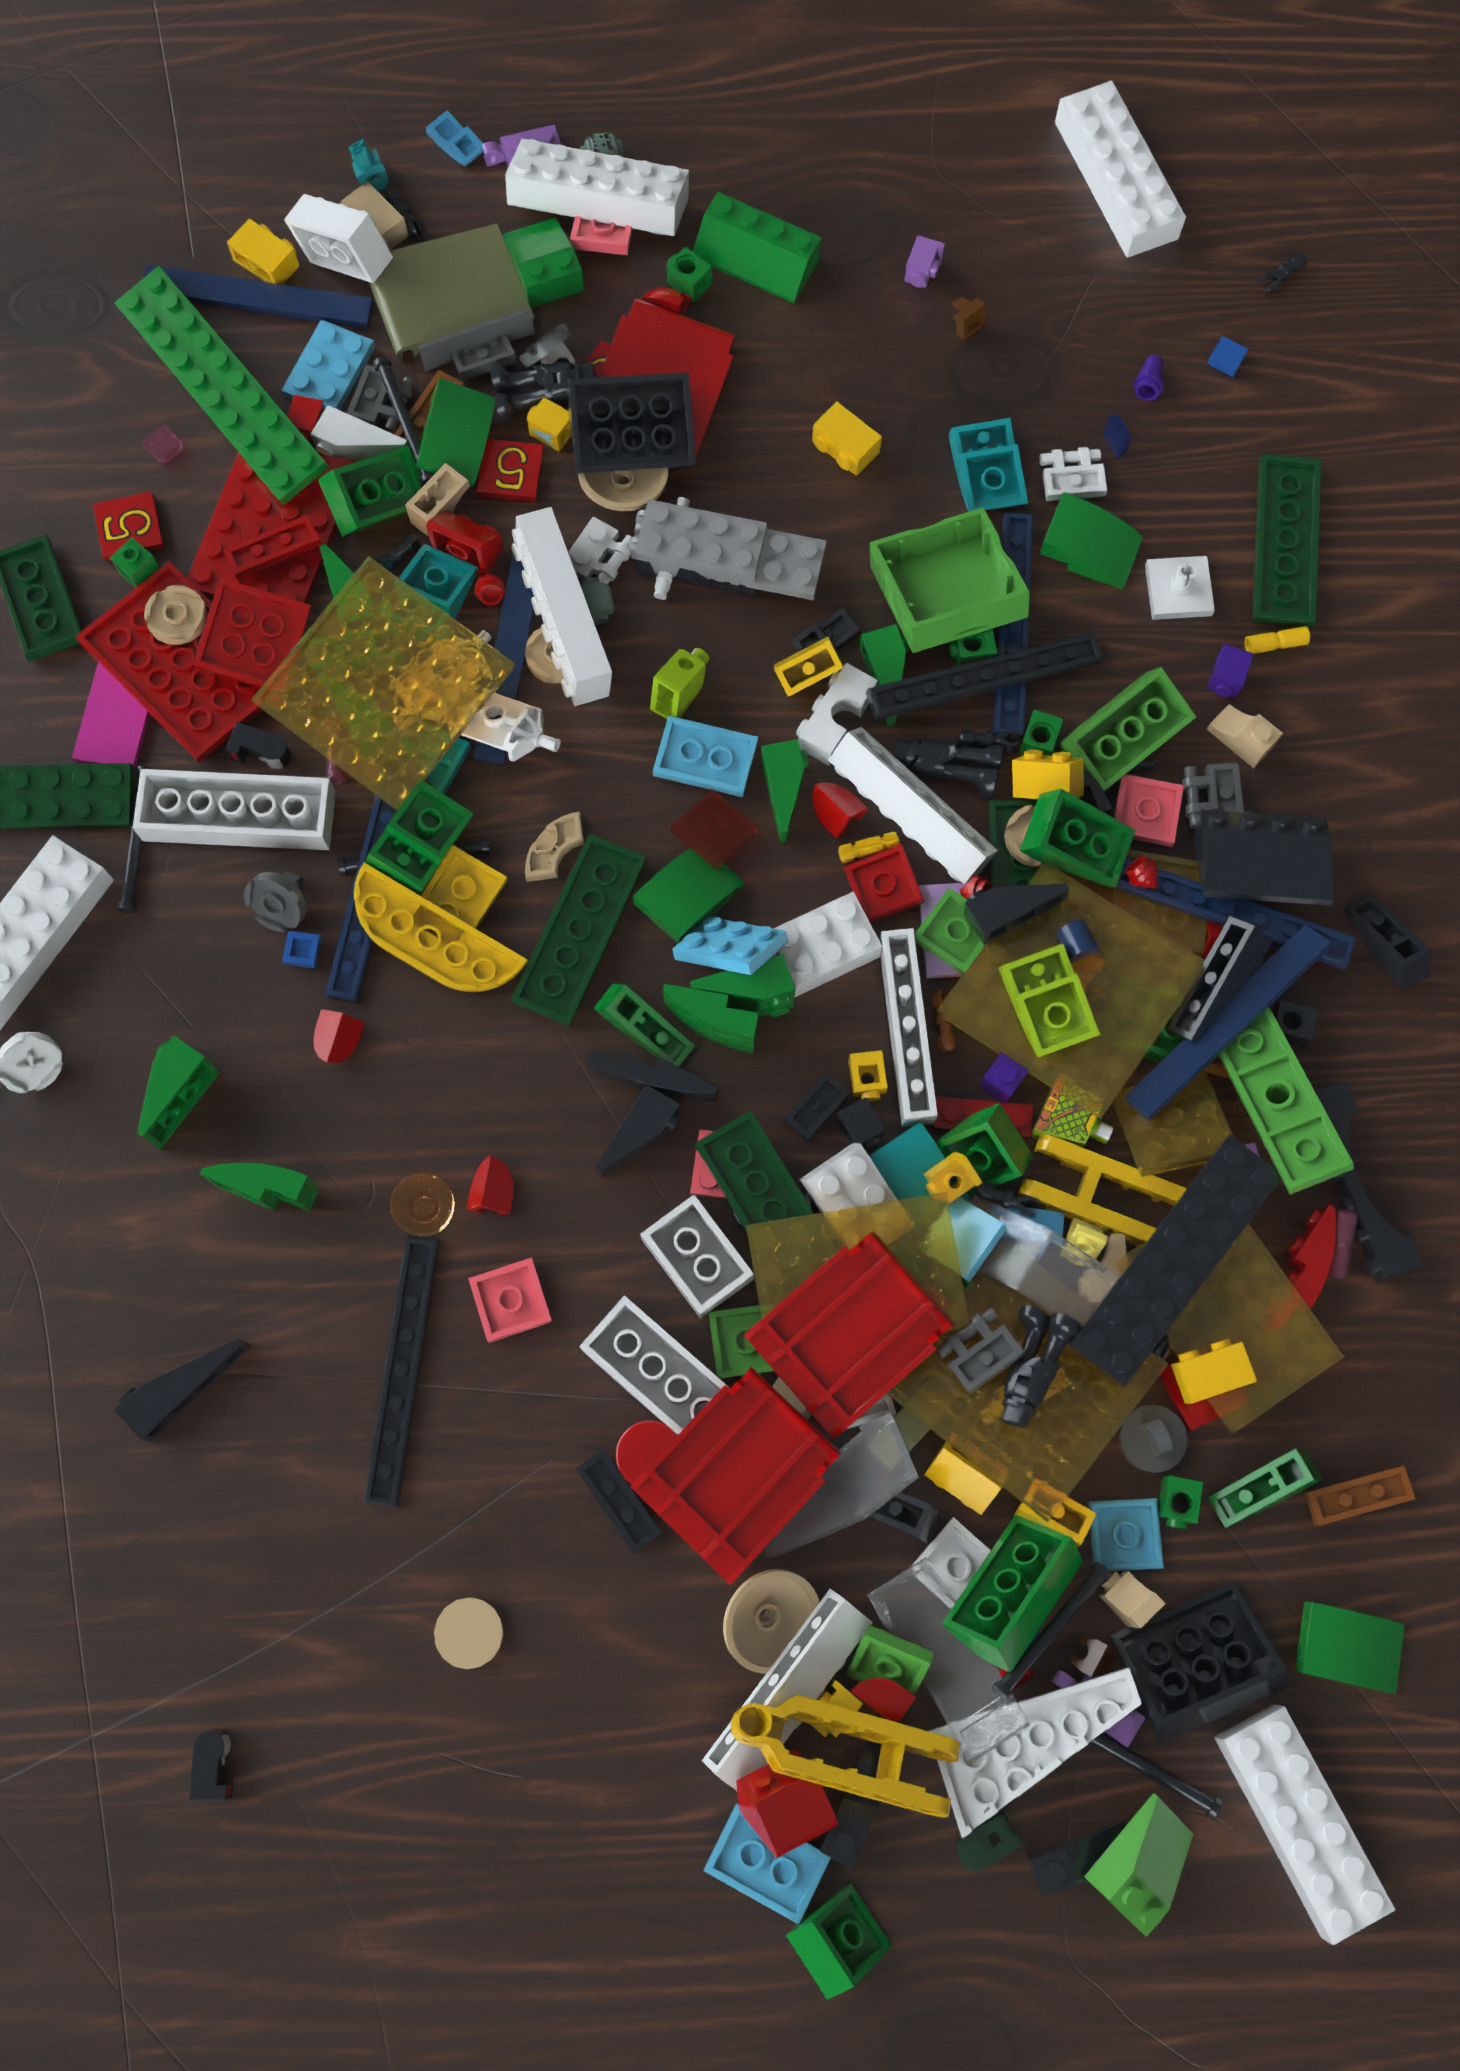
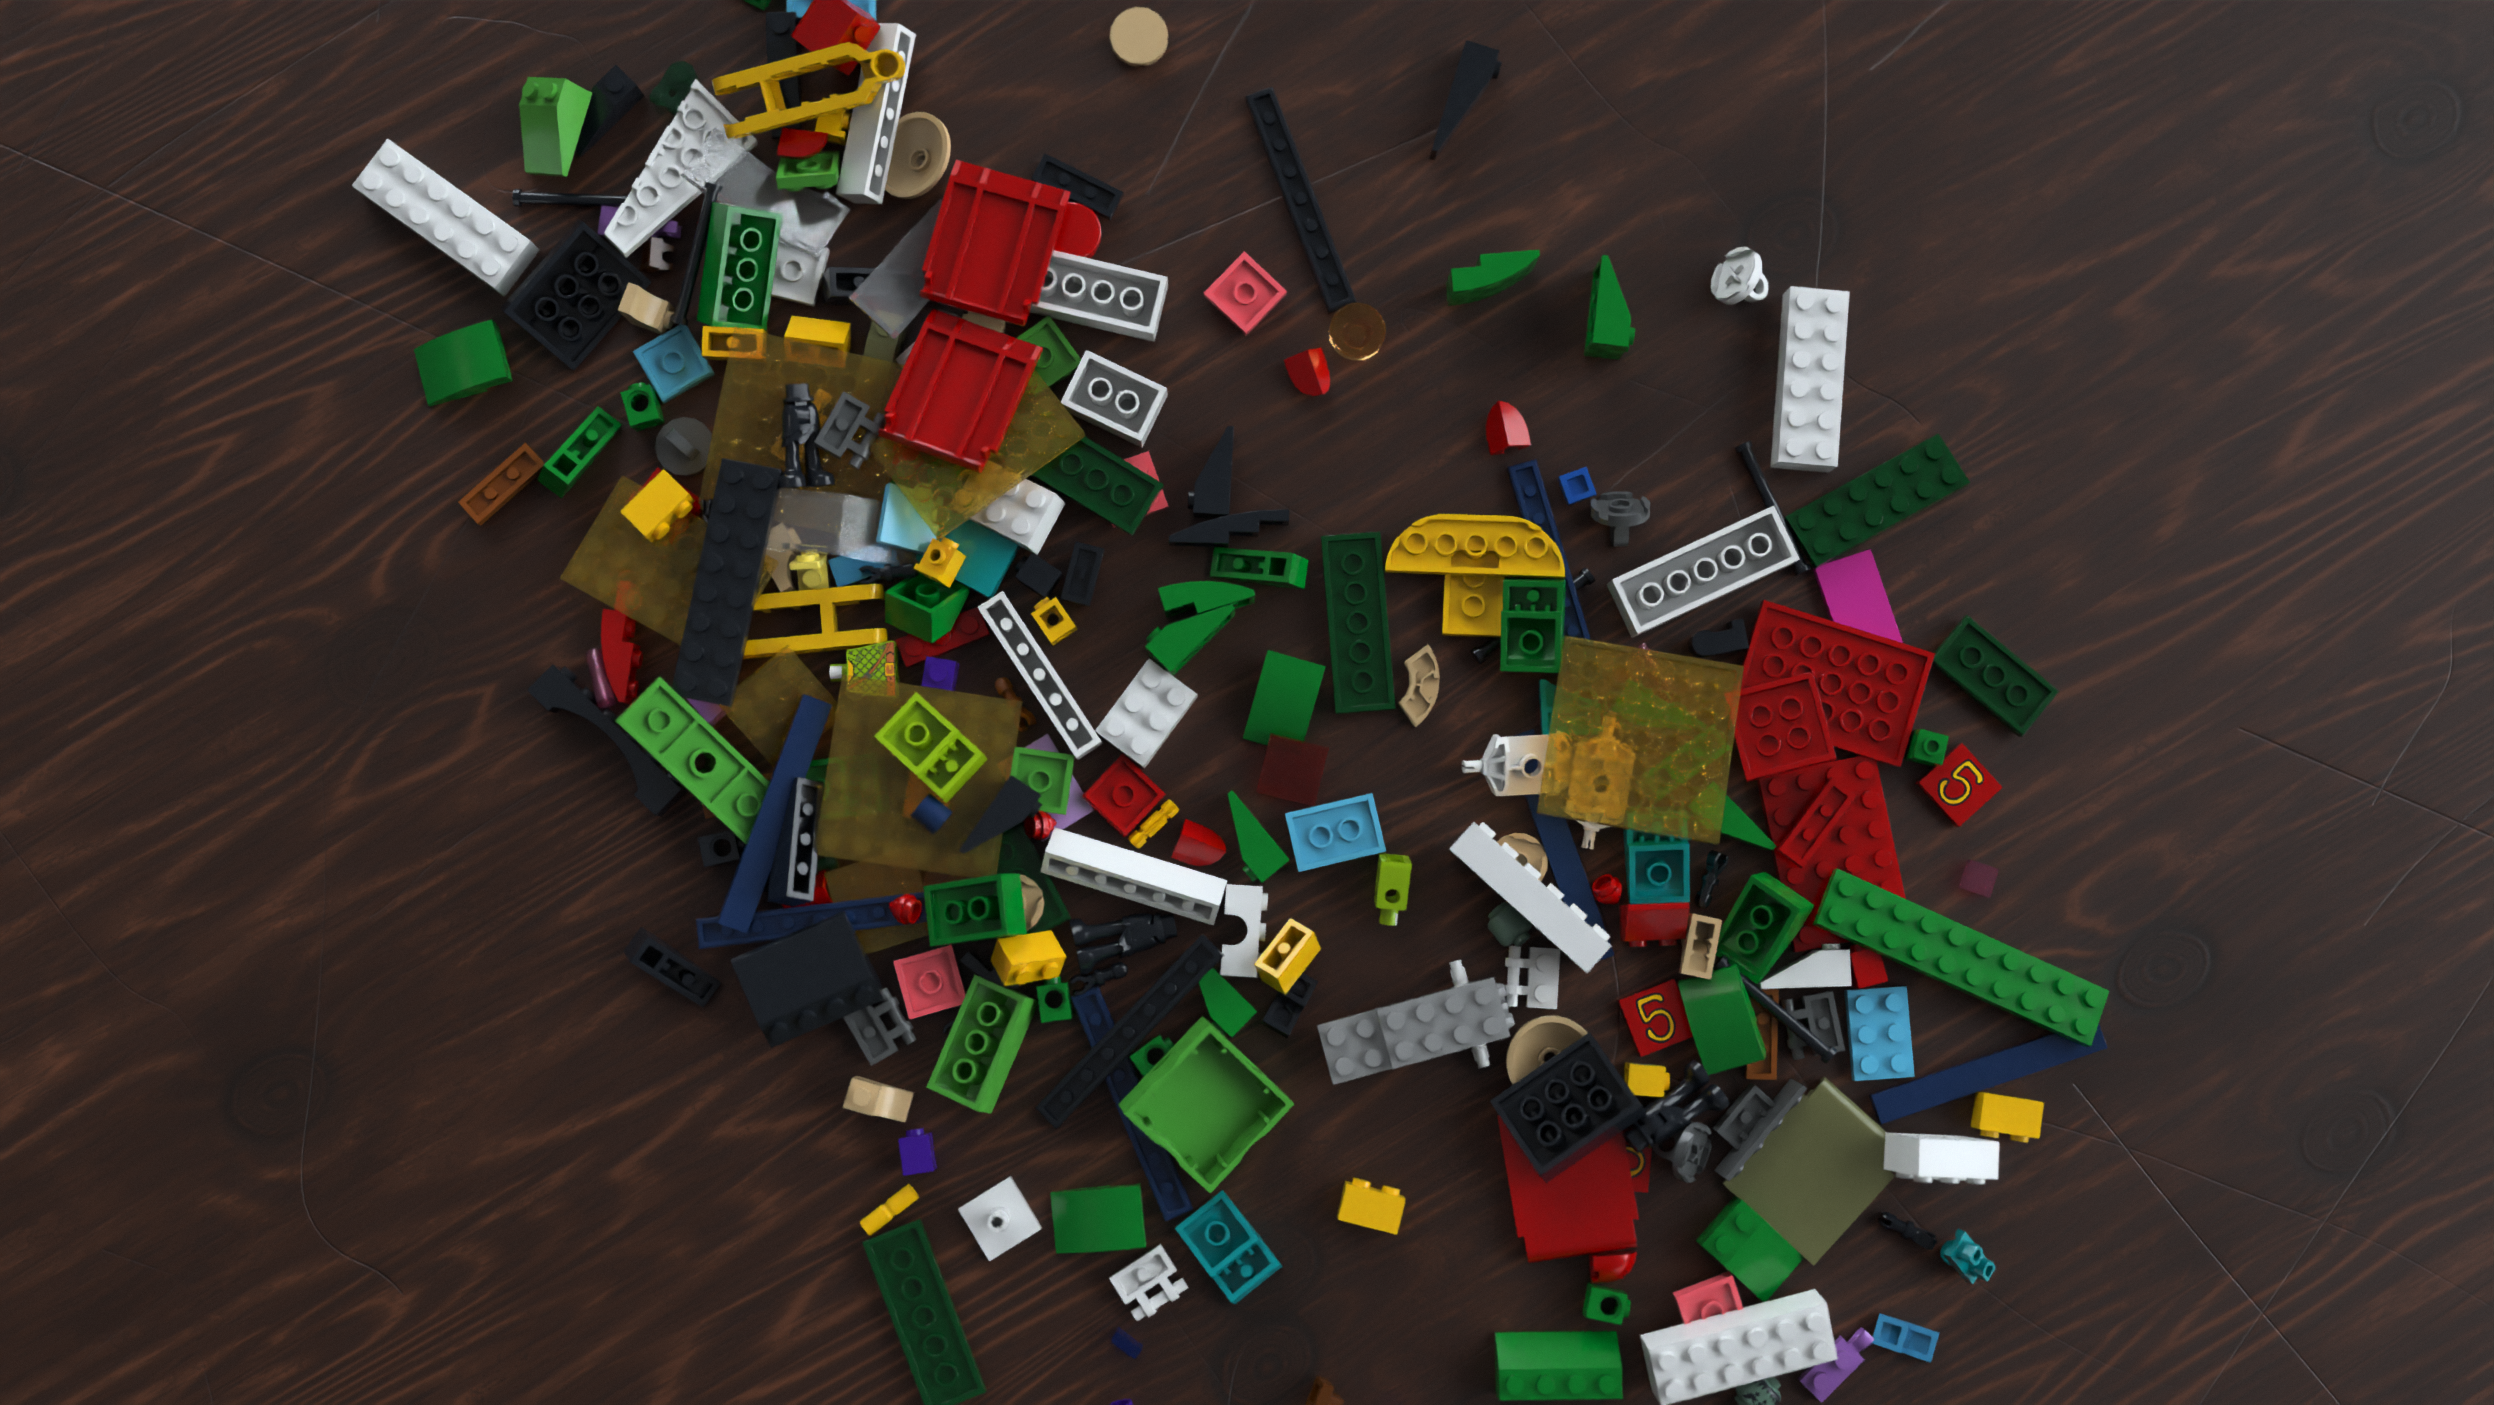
camera: 145 degrees right, 10 degrees up
(173, 623) = (1861, 718): tan tile -> none
(387, 219) = (1928, 1207): tan brick -> none
(730, 945) = (1220, 663): medium azure plate -> none

